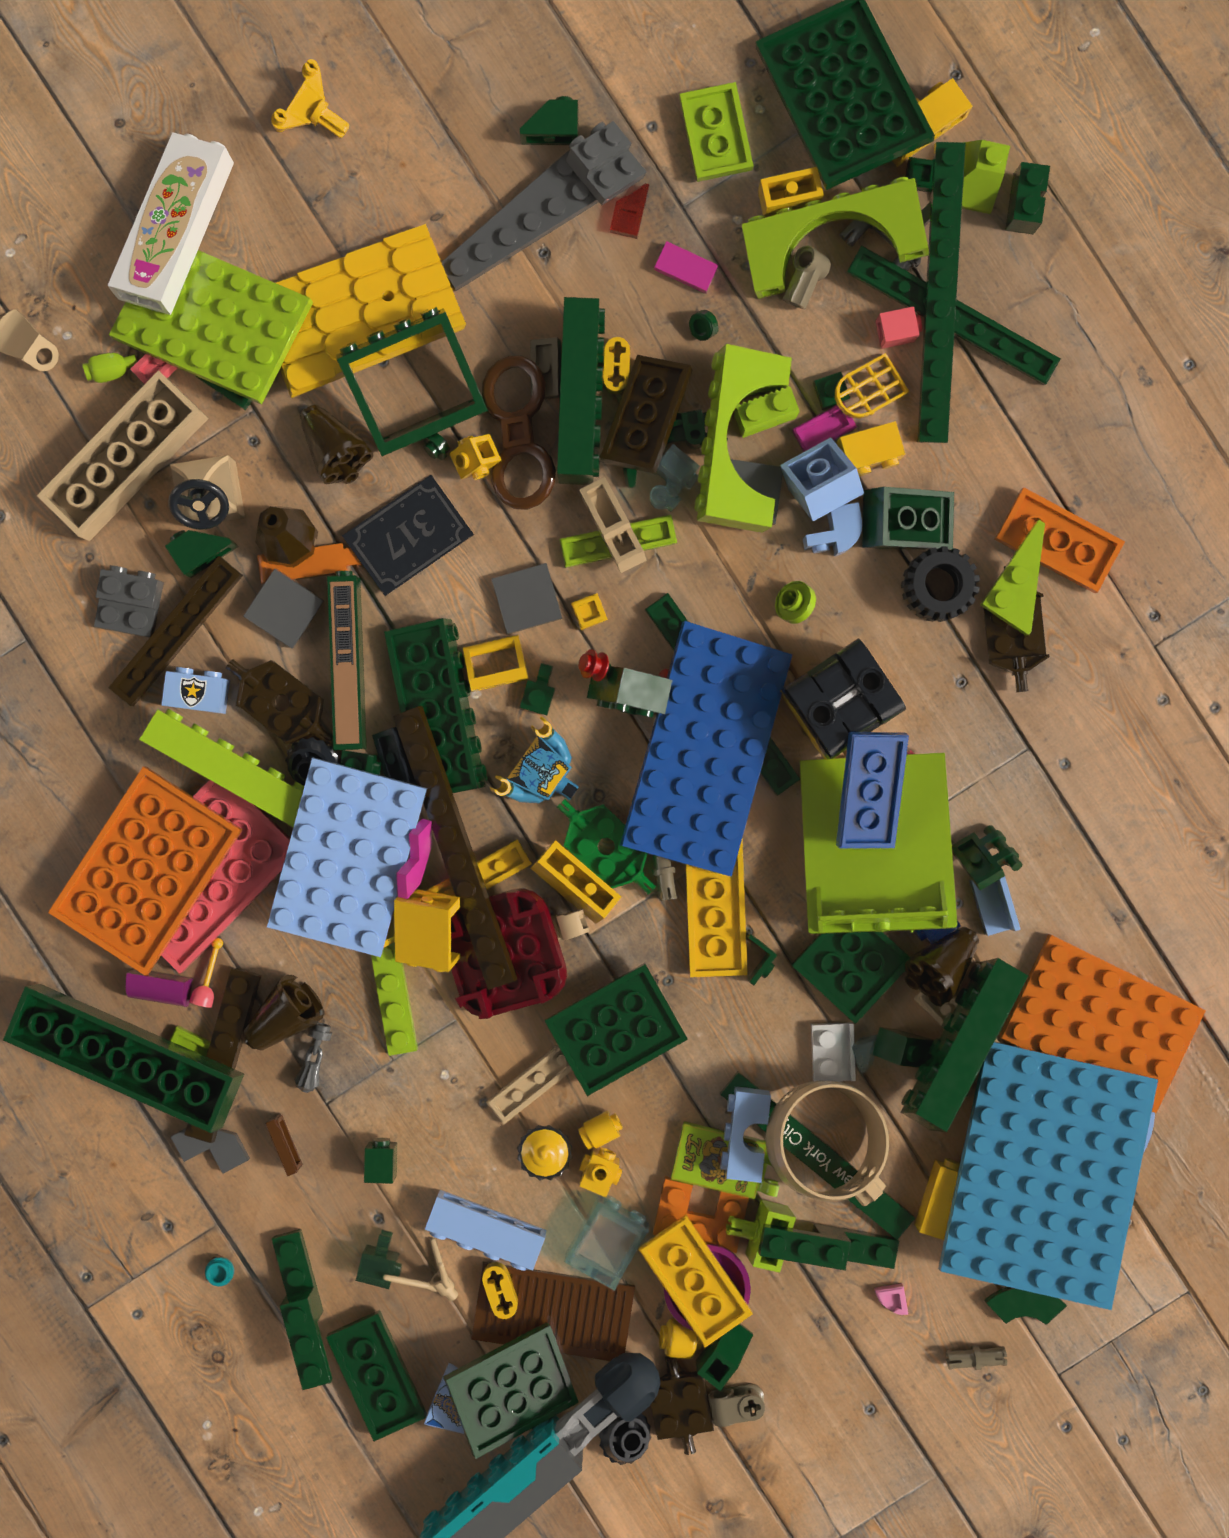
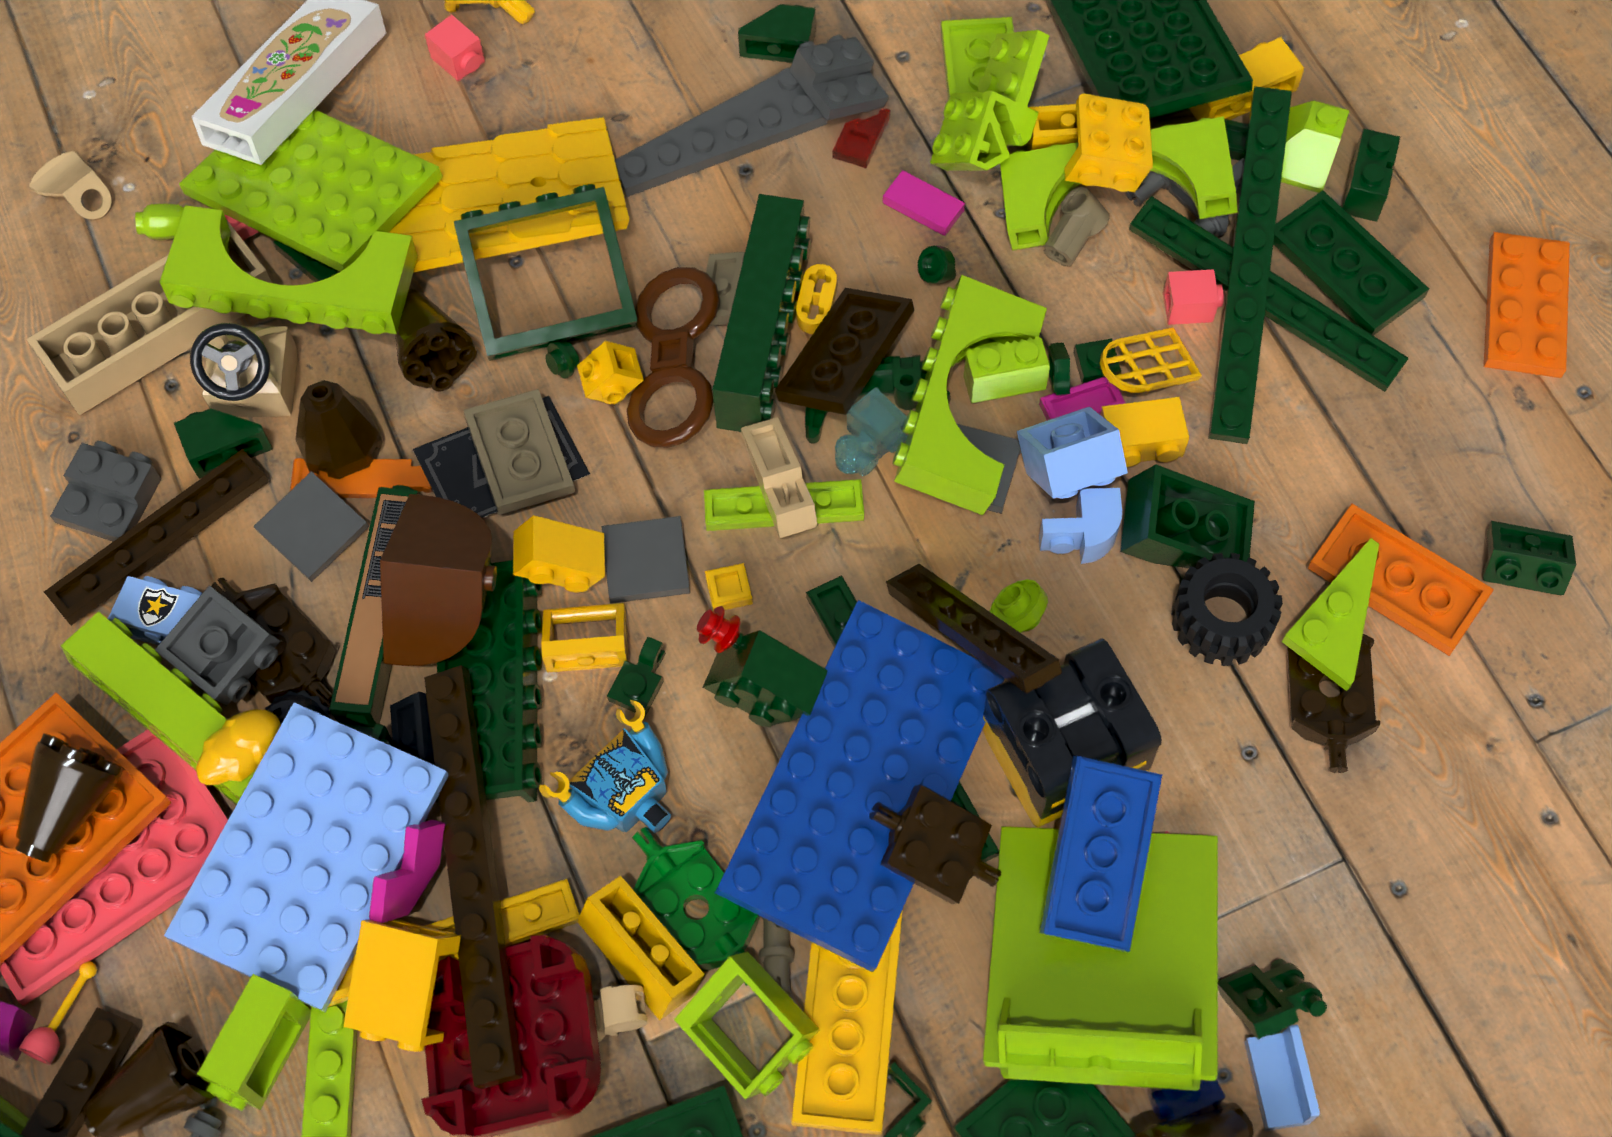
camera: 15 degrees right, 25 degrees down
(173, 844) = (61, 795): none -> dark brown cone
(246, 717) = (219, 647): none -> dark grey plate
(281, 427) = (362, 296): none -> lime arch
(281, 791) = (237, 747): none -> yellow arm
(294, 173) = (455, 48): none -> coral brick
(340, 984) = (254, 1044): none -> lime window
(388, 648) = (434, 581): none -> reddish brown brick
(420, 529) = (518, 451): none -> dark tan plate
(467, 611) = (558, 554): none -> yellow brick
(641, 940) = (737, 1069): none -> lime window
(737, 185) = (996, 116): none -> lime piece
(760, 790) = (935, 844): none -> dark brown plate
(768, 636) = (974, 628): none -> dark brown plate
(805, 405) = (1059, 368): none -> dark green tile
(829, 209) = (1111, 144): none -> yellow bracket
(1012, 279) = (1348, 263): none -> dark green plate
(1147, 295) = (1527, 305): none -> orange plate
(1149, 510) = (1529, 558): none -> dark green bracket

